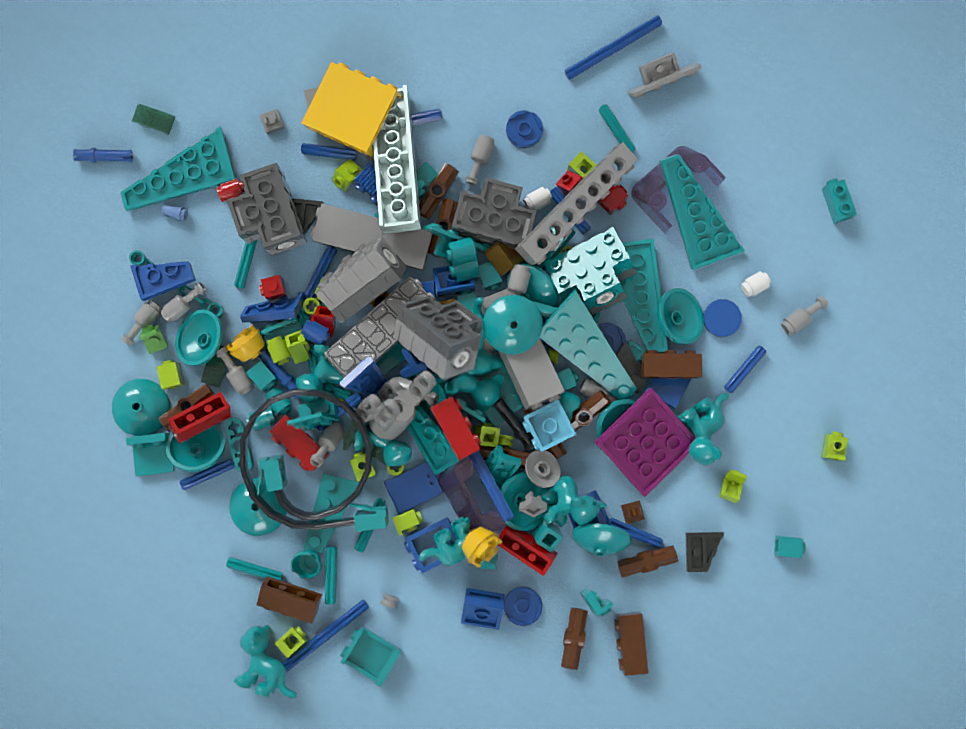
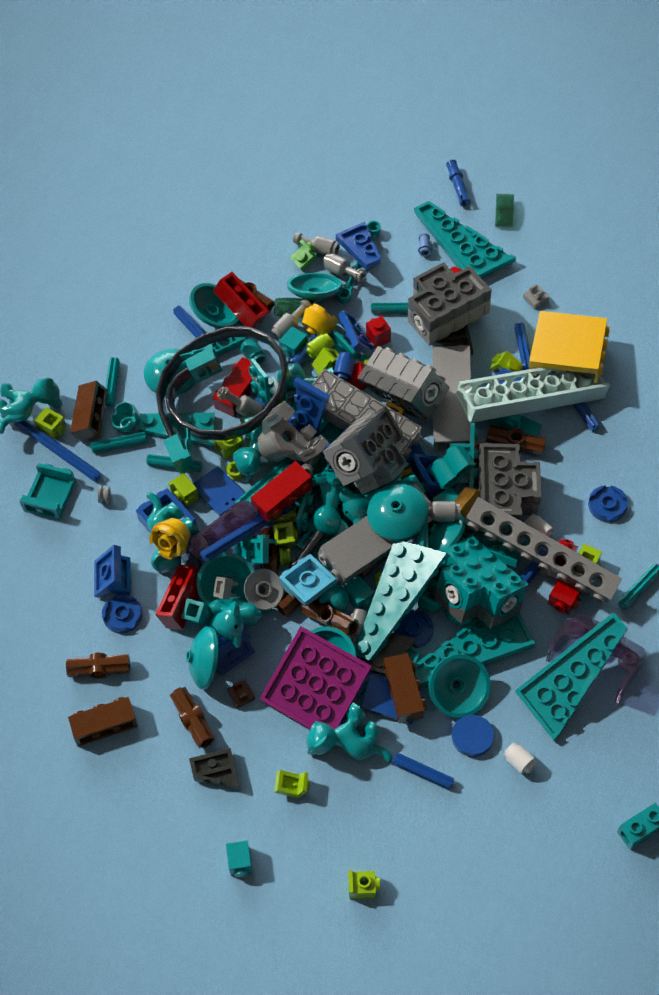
camera: 80 degrees right, 25 degrees down
(150, 454) = (201, 274): teal bracket -> none
(152, 402) = (242, 259): teal dish -> none
(170, 375) = (274, 275): lime brick -> none
(281, 407) = (270, 363): teal brick -> none
(481, 155) = (566, 469): light grey piece -> none
(595, 603) = (138, 669): teal bracket -> none
(637, 533) = (219, 698): blue axle -> none
(801, 318) = (497, 814): light grey piece -> none

